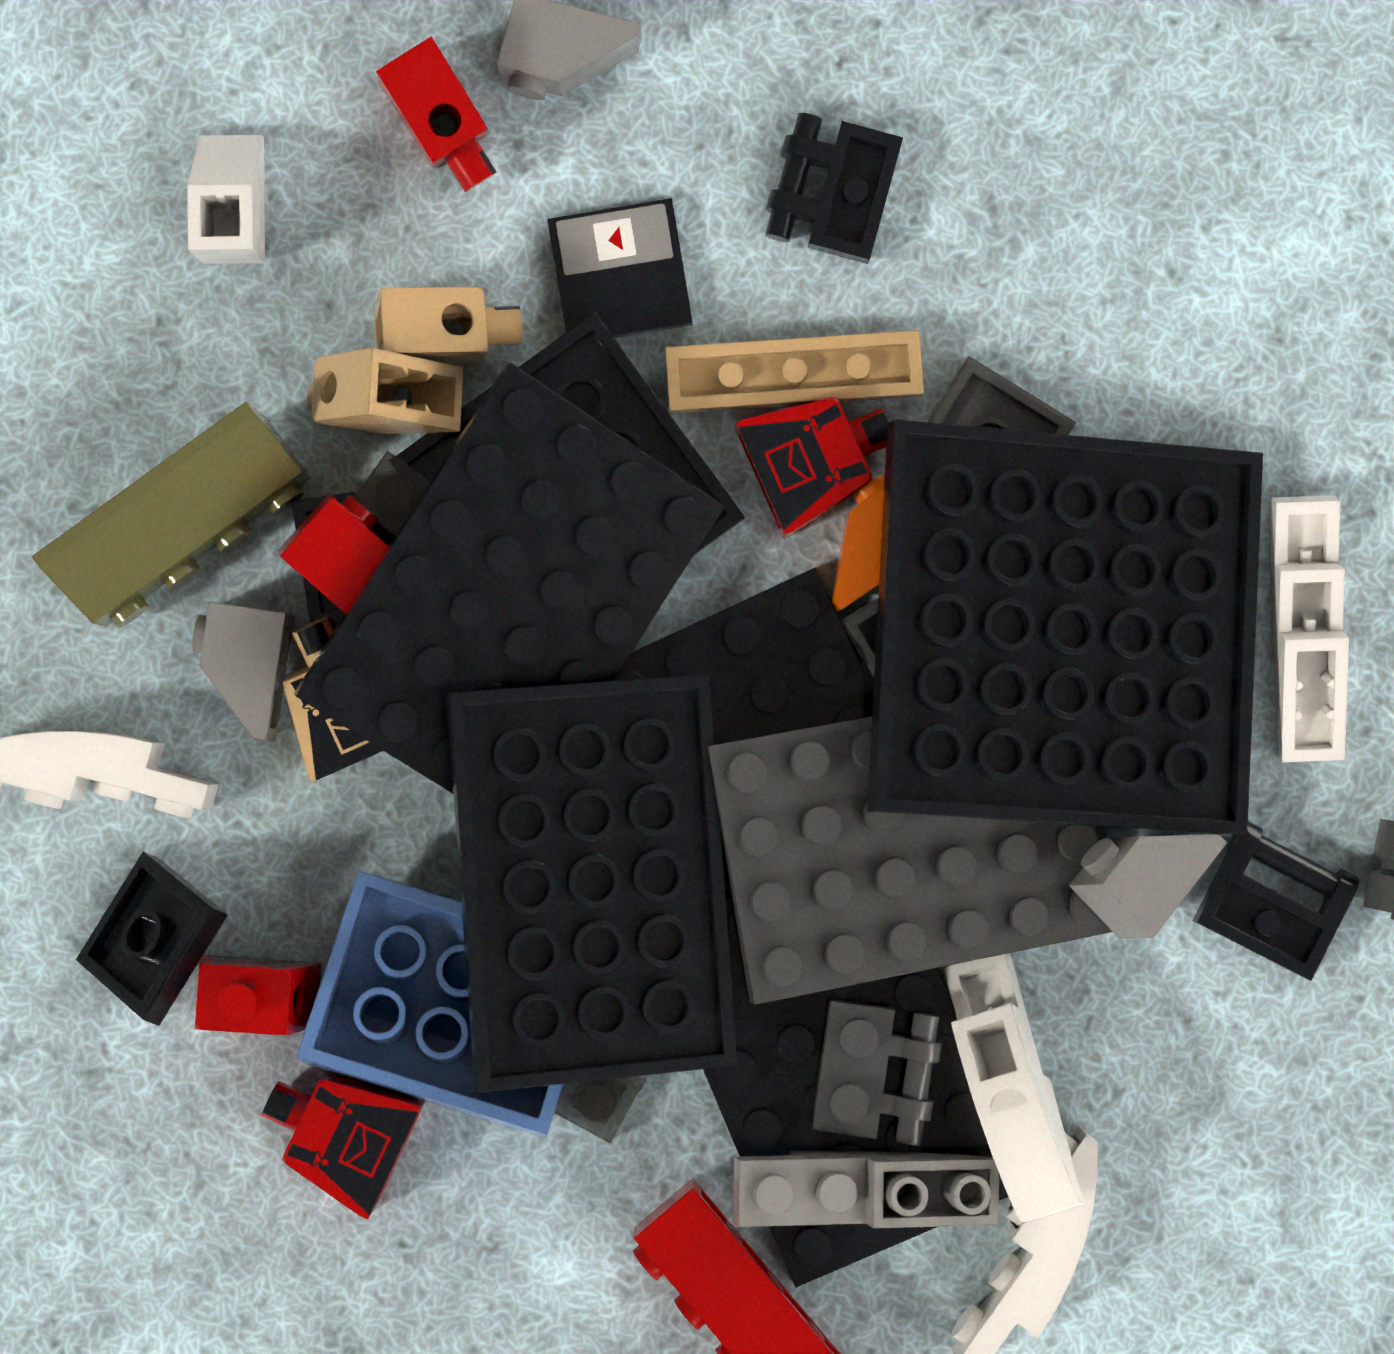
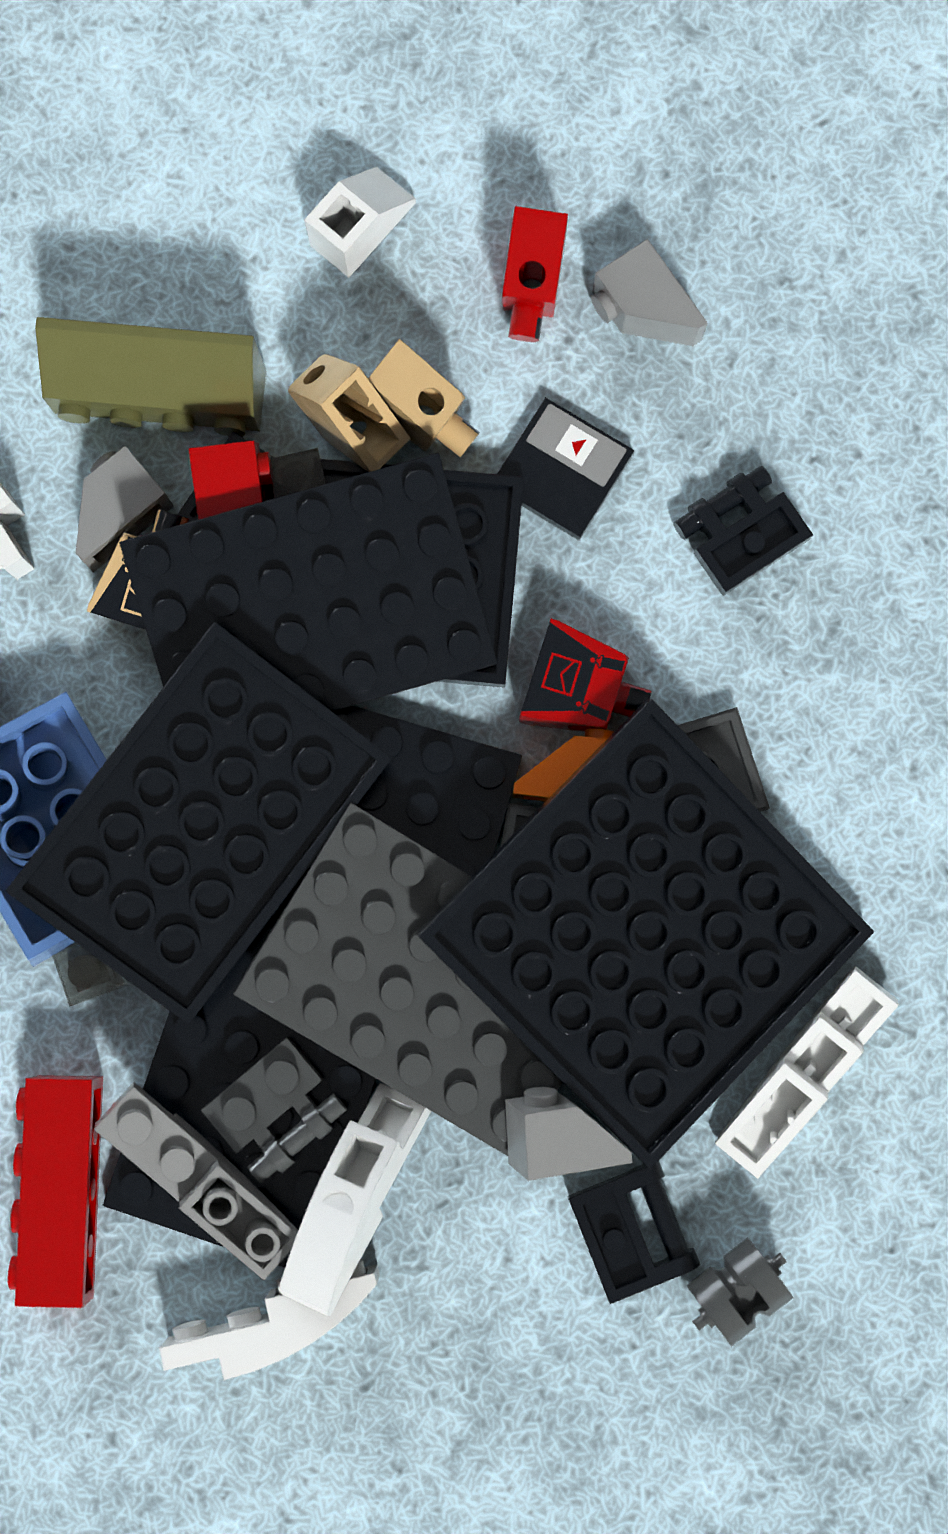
camera: 50 degrees right, 5 degrees down
(794, 371) = (617, 621): tan plate -> none

